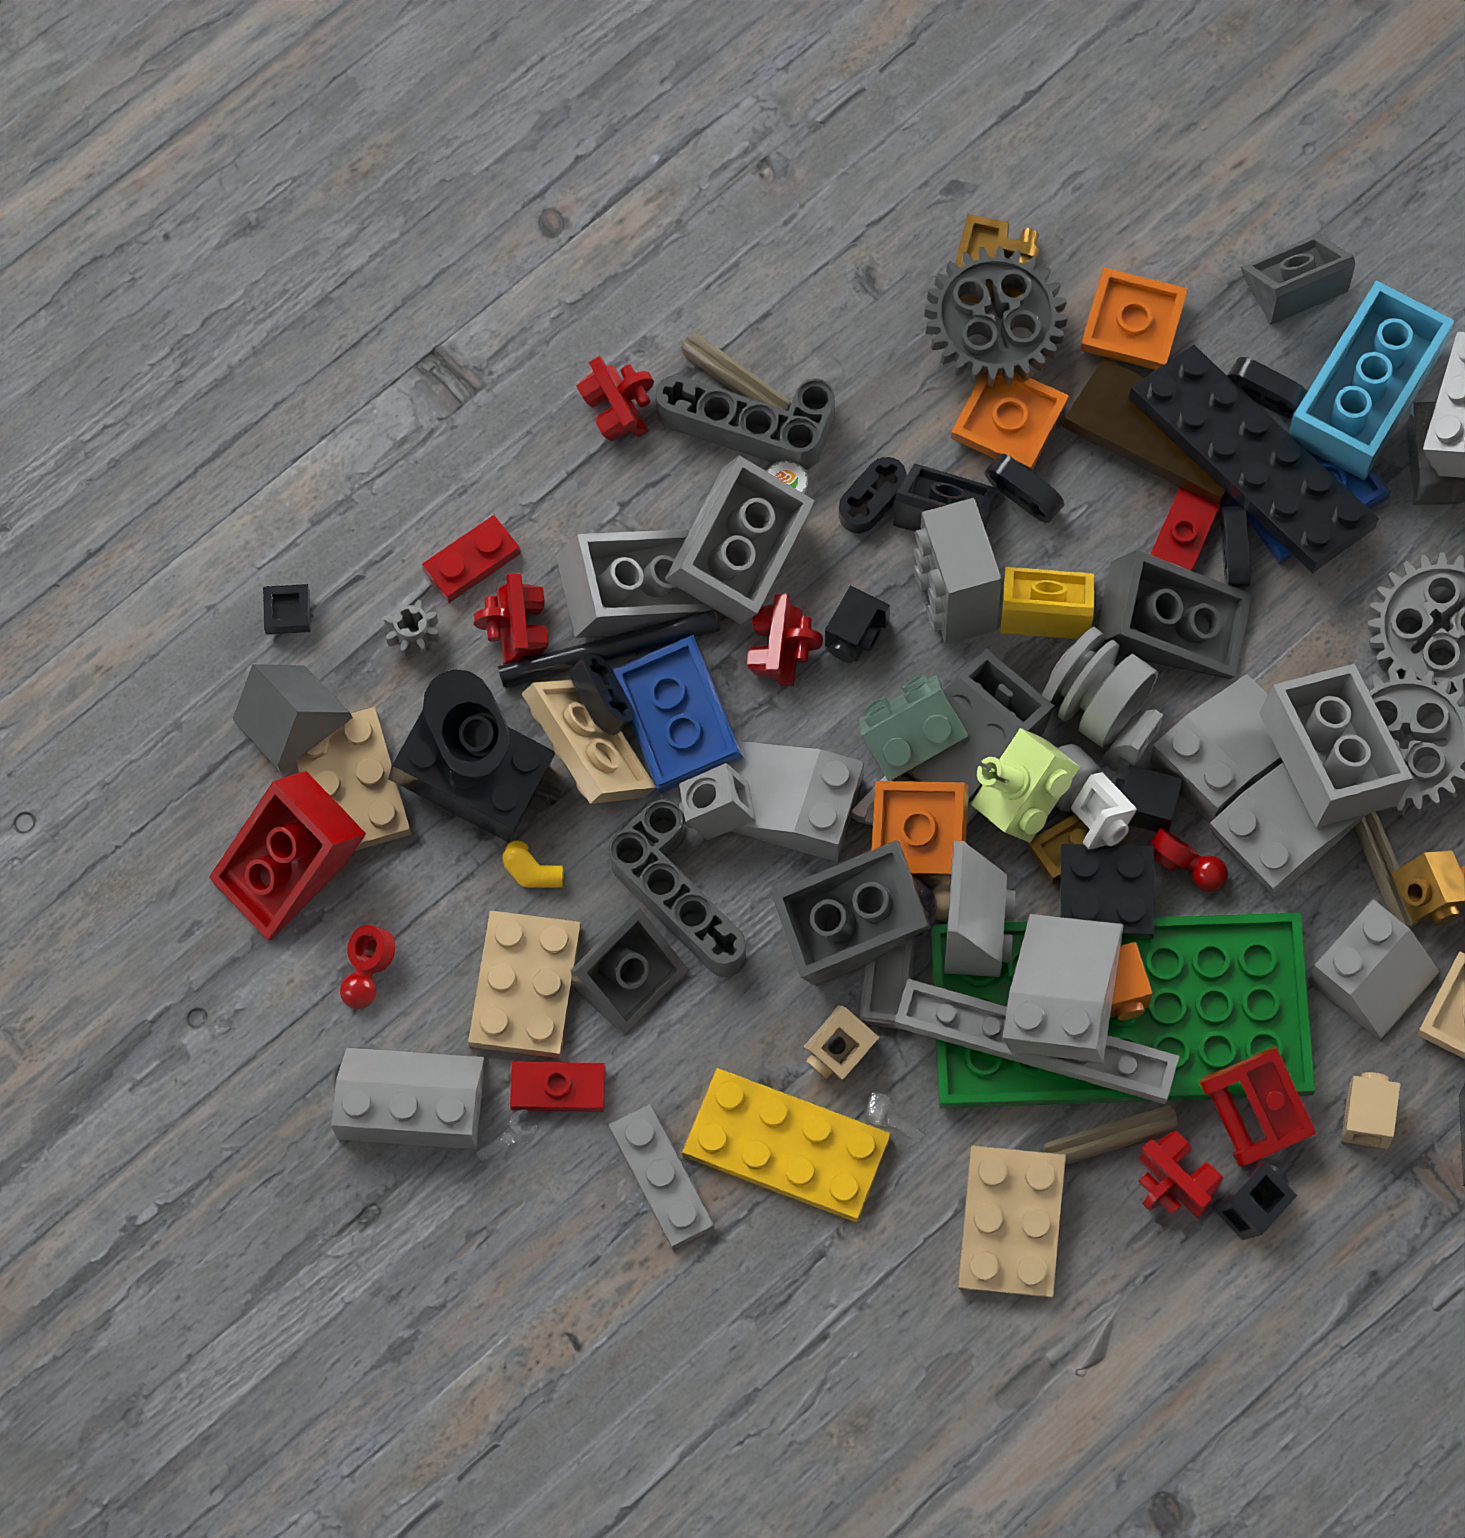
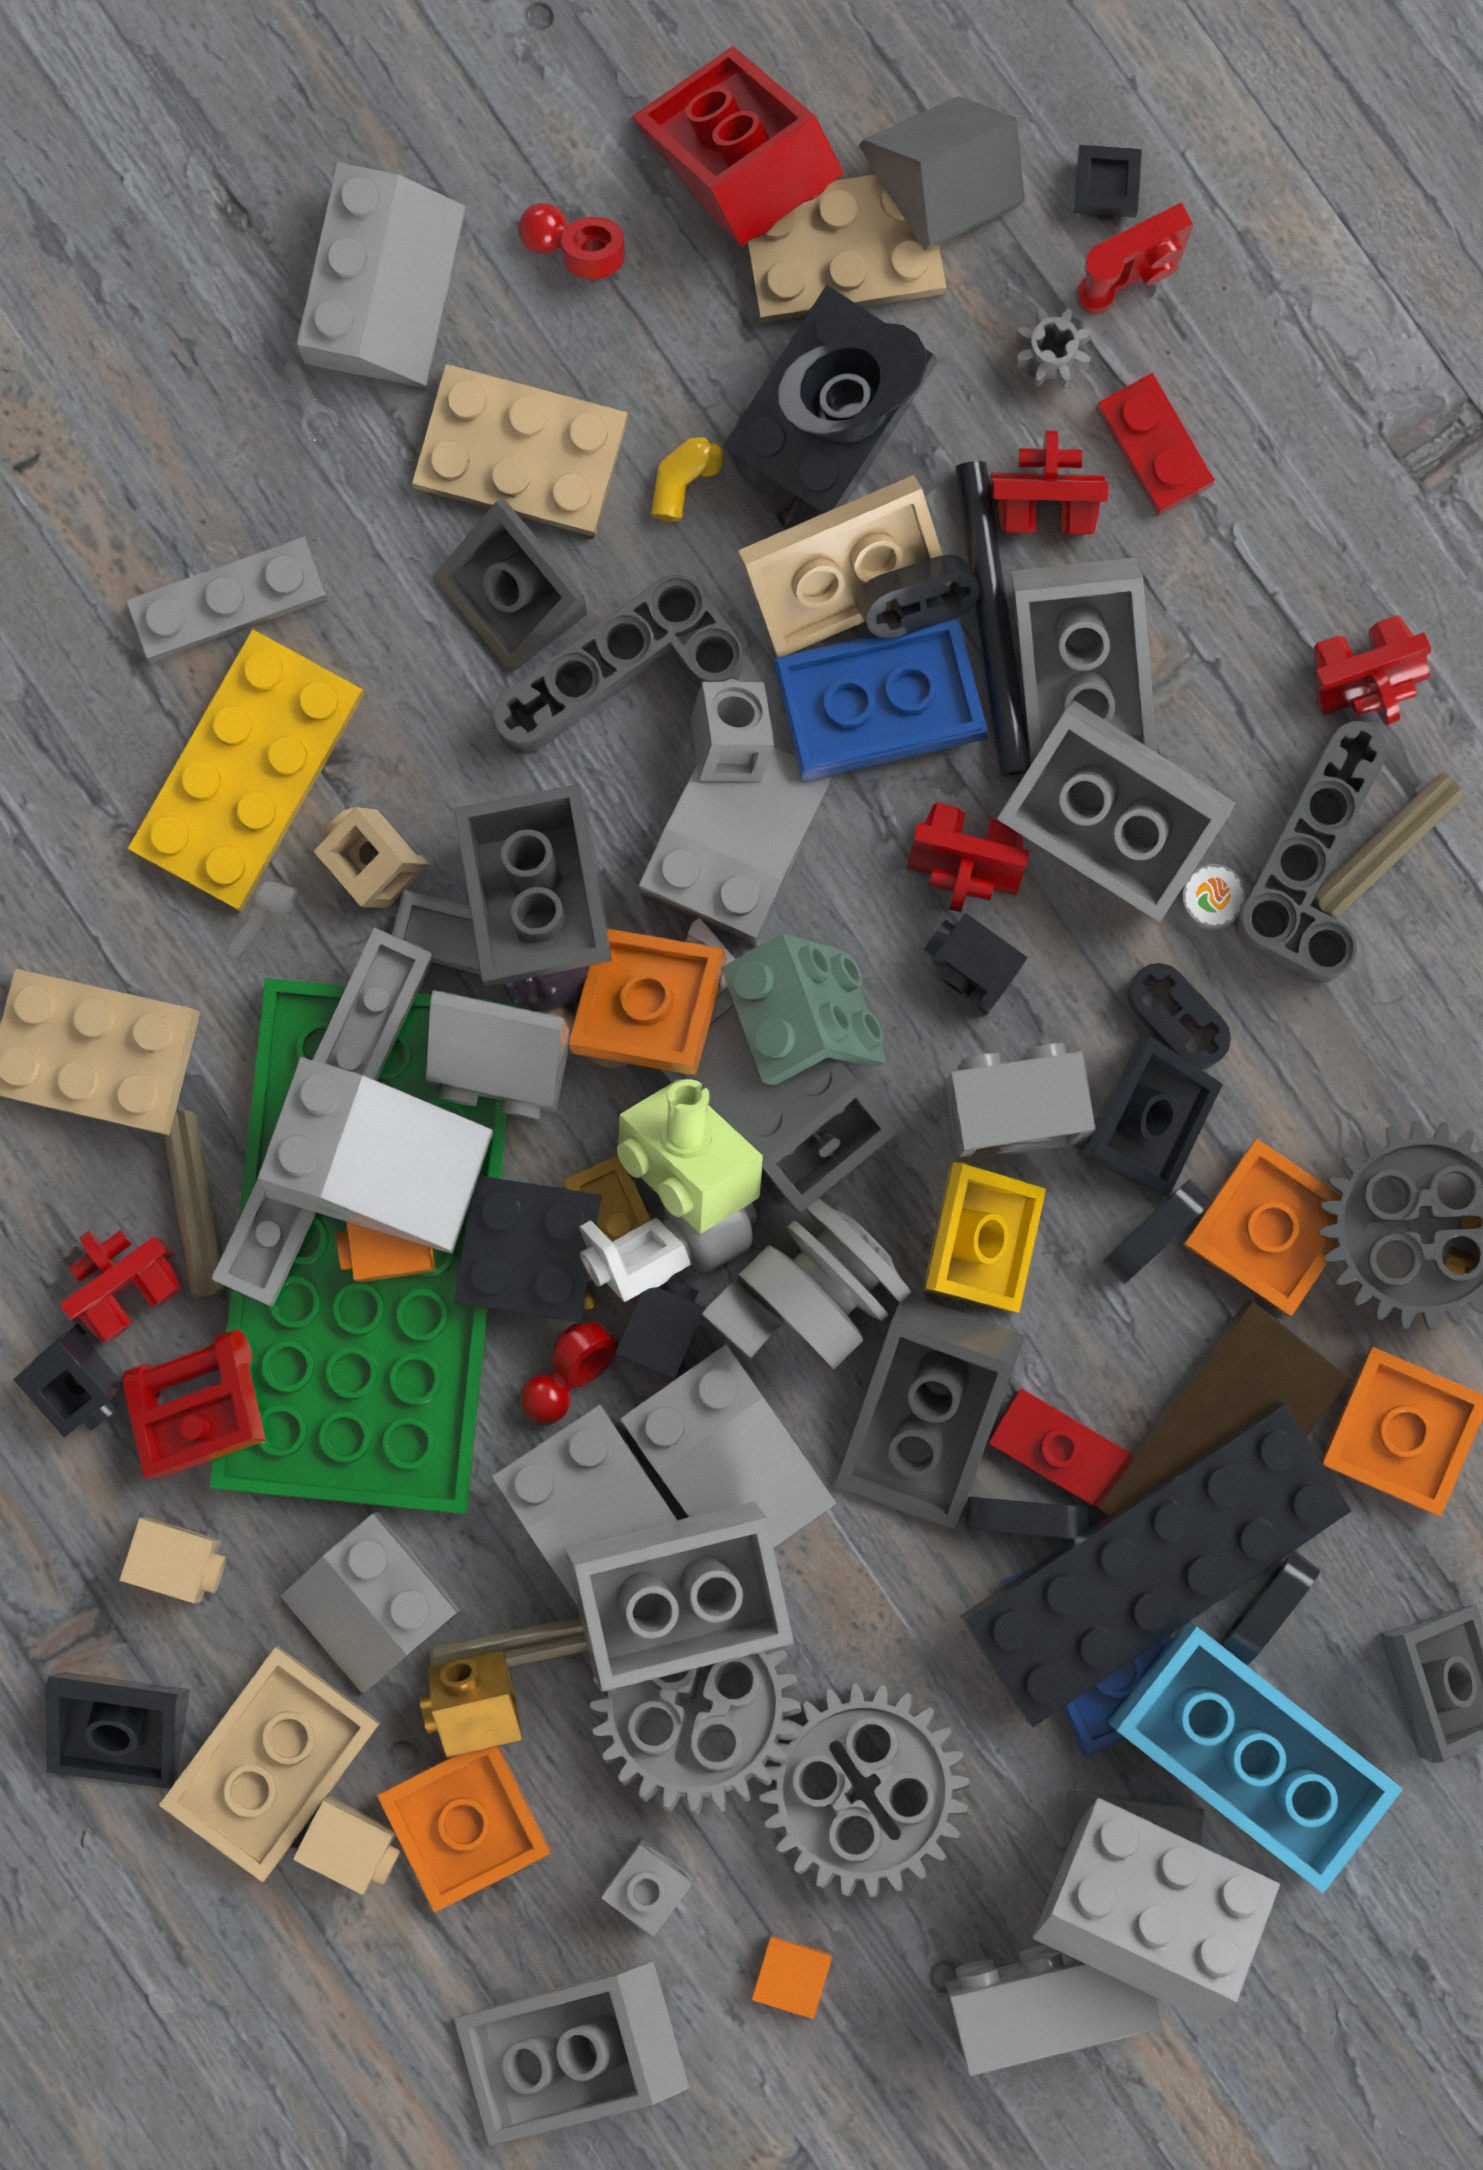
camera: 95 degrees right, 15 degrees up
(350, 582) = (1136, 254): none -> red plate
(557, 1086) = (370, 477): red plate -> none

